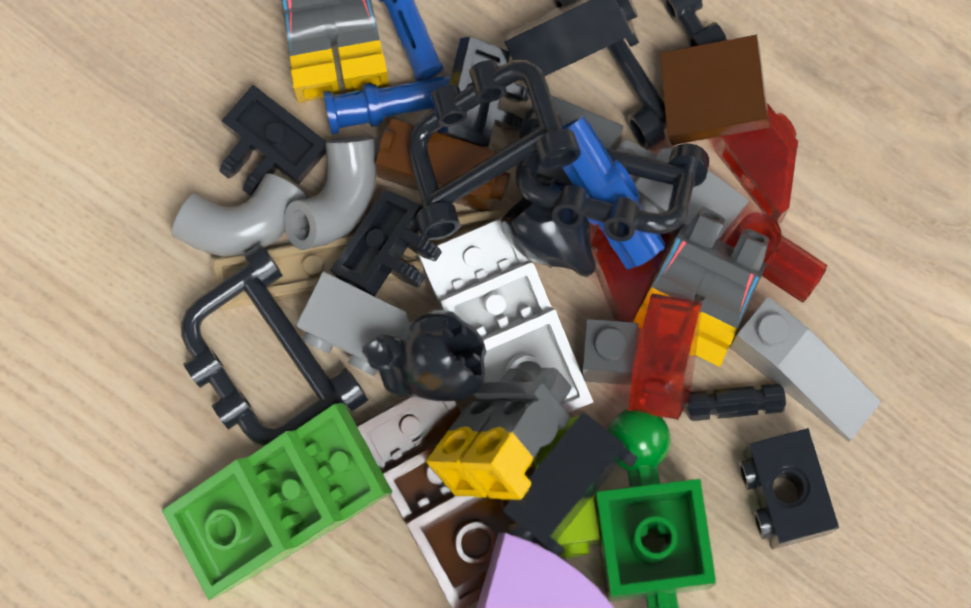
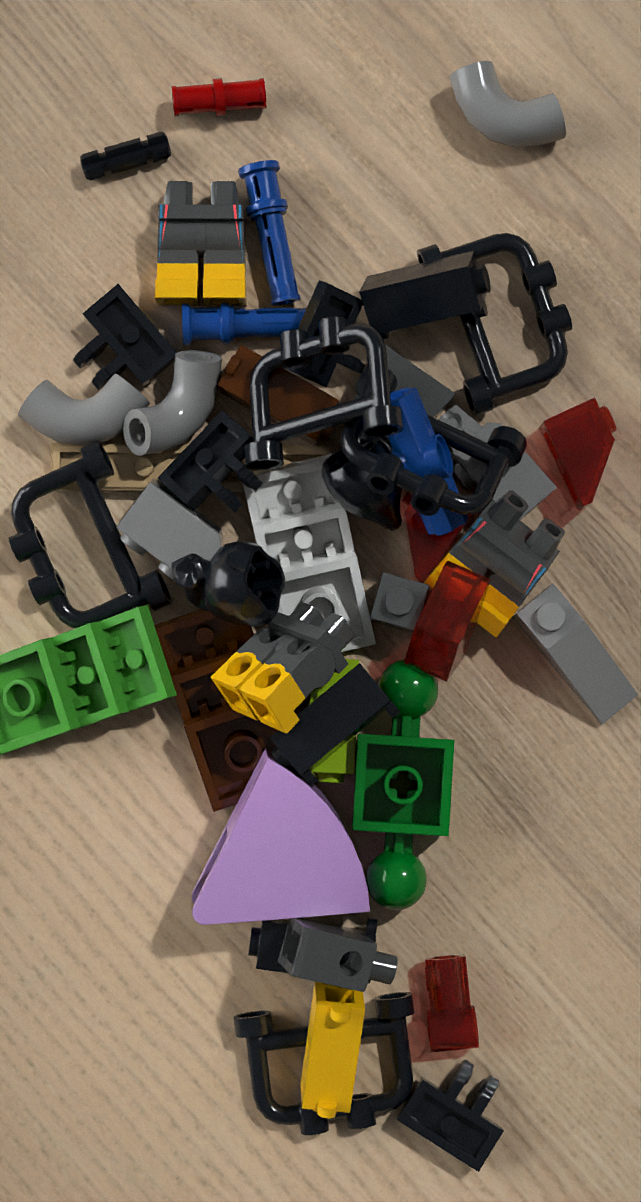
camera: 10 degrees right, 10 degrees up
(714, 90) = (547, 375): reddish brown tile -> none
(736, 402) = (505, 669): black axle -> none
(787, 263) = (579, 550): clear red piece -> none
(795, 459) = (551, 783): black brick -> none

